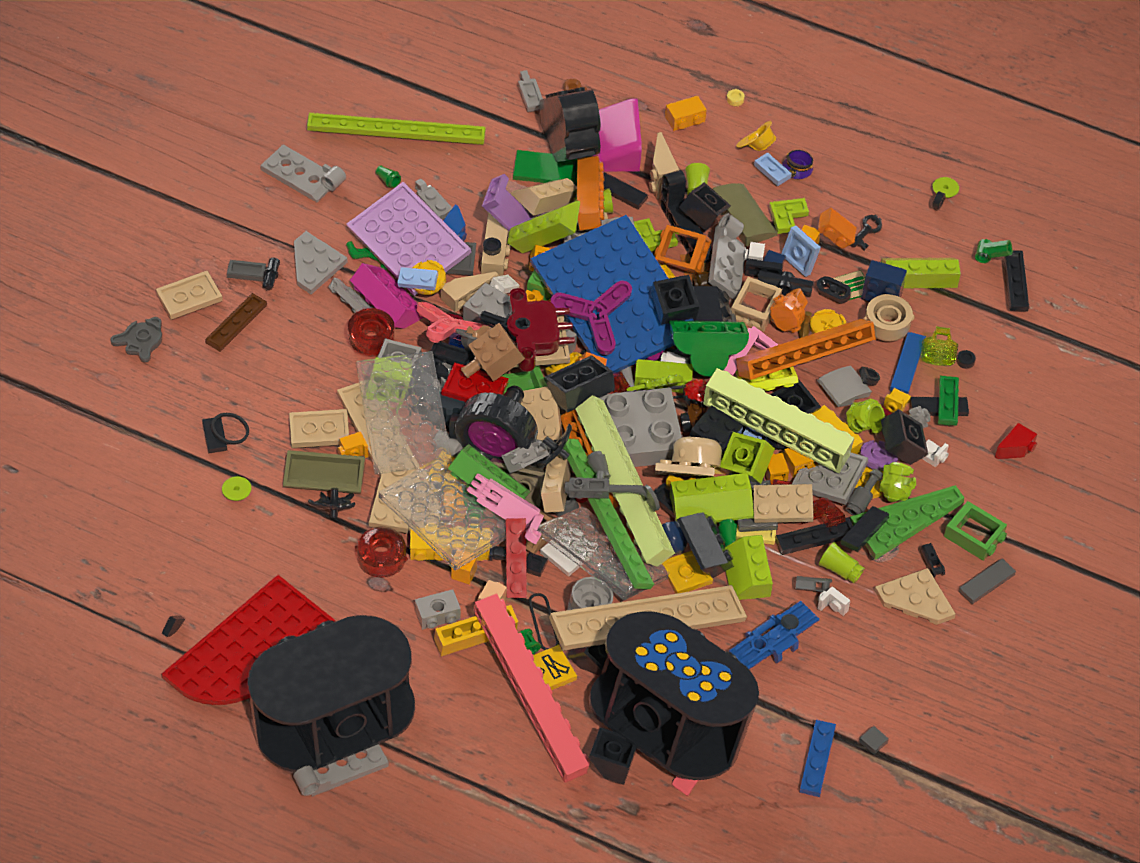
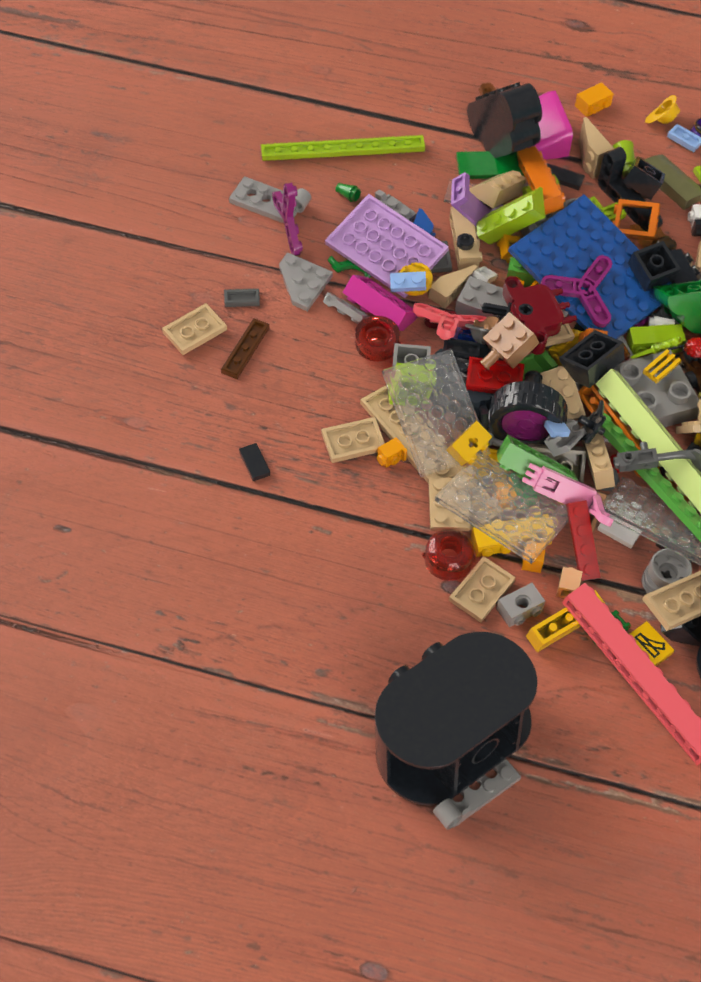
camera: 10 degrees left, 5 degrees up
(140, 338) = (158, 377): dark grey tile -> none
(173, 625) = (266, 666): black tile -> none
(220, 663) = (346, 676): red plate -> none
(236, 417) = (262, 464): black piece -> none
(236, 488) = (290, 513): lime piece -> none
(271, 273) = (266, 297): black axle -> none
(312, 176) = (285, 206): none -> magenta piece
(324, 471) = (370, 482): olive slope -> none
(334, 502) = (389, 512): black piece -> none
(399, 590) = (482, 589): none -> tan plate
(434, 438) = (460, 447): none -> yellow brick
(497, 553) = (563, 536): black bush -> none
(516, 446) = (557, 429): none -> light blue tile
(529, 91) = (452, 99): light grey hinge -> none
(534, 619) = (628, 593): black piece -> none
(535, 564) = (600, 542): black tile -> none
(598, 462) = (636, 434): dark grey cone -> none
(648, 399) = (670, 357): none -> yellow tile
(727, 263) = (676, 218): light grey hinge -> none
(735, 97) = (630, 80): light yellow tile -> none

